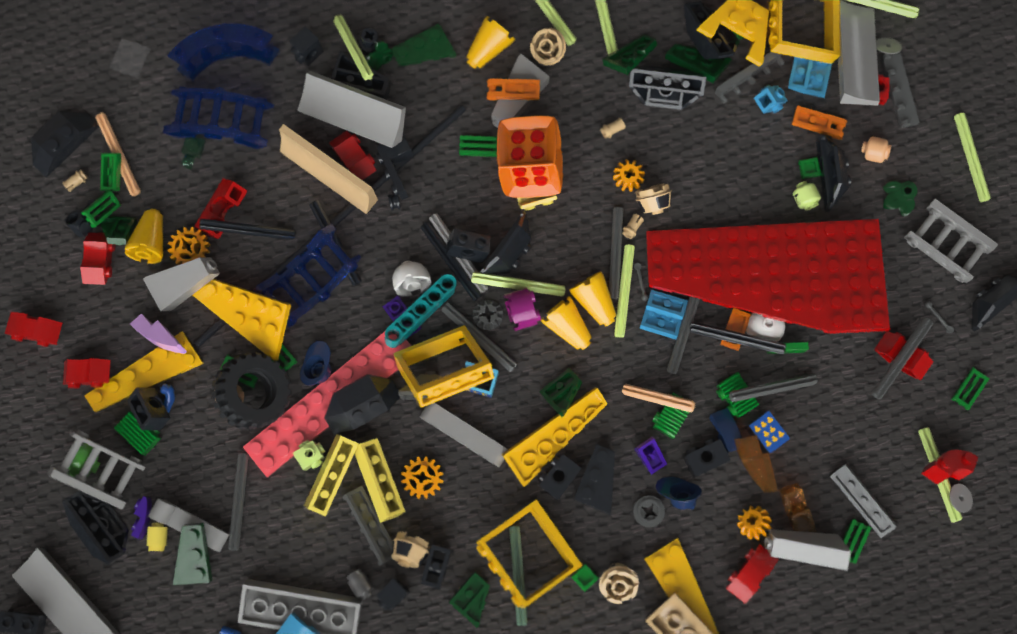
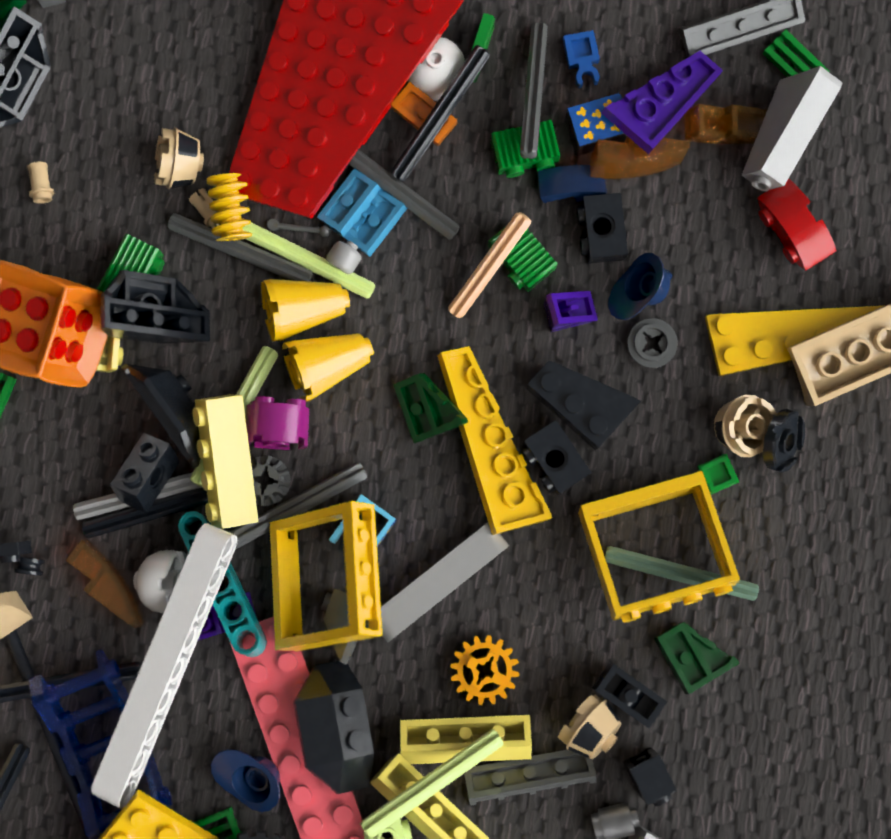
camera: 75 degrees left, 5 degrees up
(348, 467) = (431, 783): none -> yellowish green axle
(365, 294) = (164, 665): none -> white beam
(399, 247) = (106, 582): none -> clear orange slope
(490, 287) = (225, 461): none -> light yellow brick
(562, 216) = (153, 310): none -> black wedge
(580, 197) = (133, 256): none -> green brick
(608, 608) = (782, 440): none -> black tile
(631, 182) = (132, 175): light orange gear -> none
(633, 313) = (344, 256): none -> light grey piece
(636, 237) = (228, 207): none -> yellow piece
(747, 522) = (717, 203): light orange gear -> none
(793, 465) = (656, 107): none -> dark purple wing
(808, 409) = (582, 53): none -> blue plate

